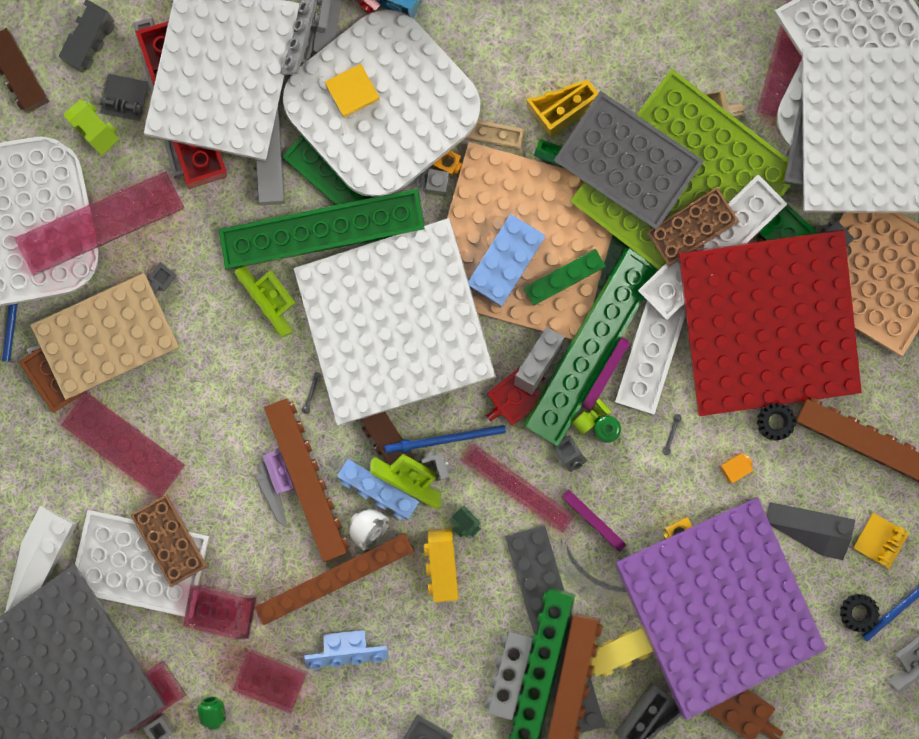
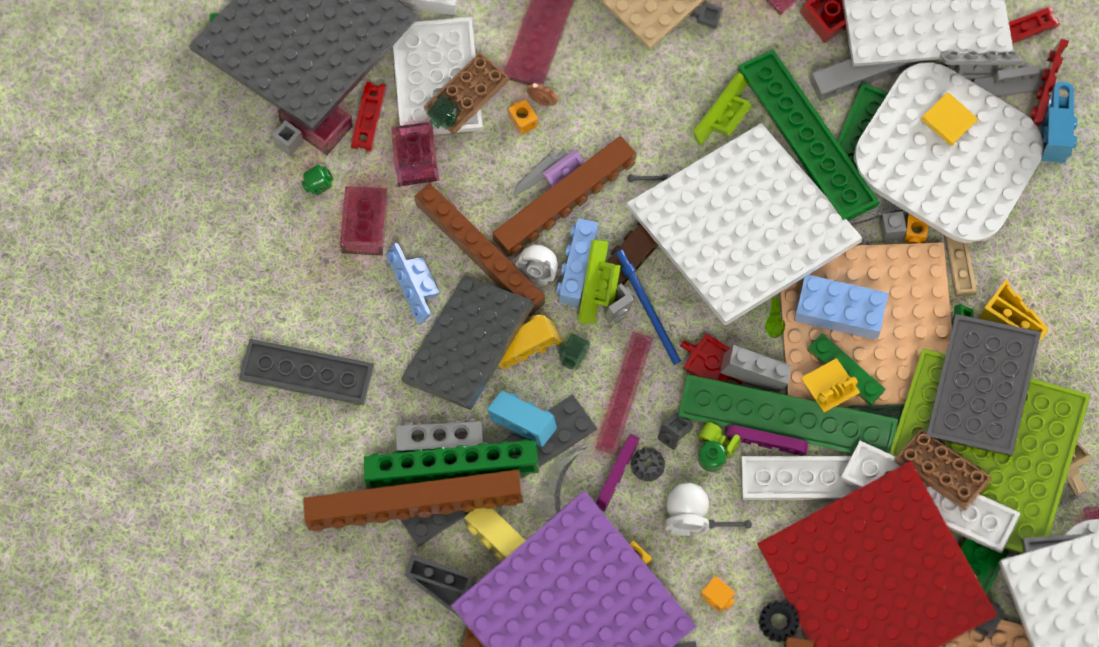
camera: 70 degrees right, 15 degrees down
(159, 642) = (368, 116): none -> red plate
(188, 571) = (443, 113): none -> clear green brick
(195, 467) = (542, 95): none -> nougat gear
(219, 493) = (522, 124): none -> light orange brick
(426, 620) = (467, 342): none -> flat silver plate
(497, 326) = (775, 325): none -> clear neon green plate
(517, 592) = (522, 418): none -> medium azure brick
(579, 298) = (830, 385): none -> yellow hinge
(583, 490) = (652, 472): none -> dark grey gear
(649, 469) = (687, 507): none -> white tile

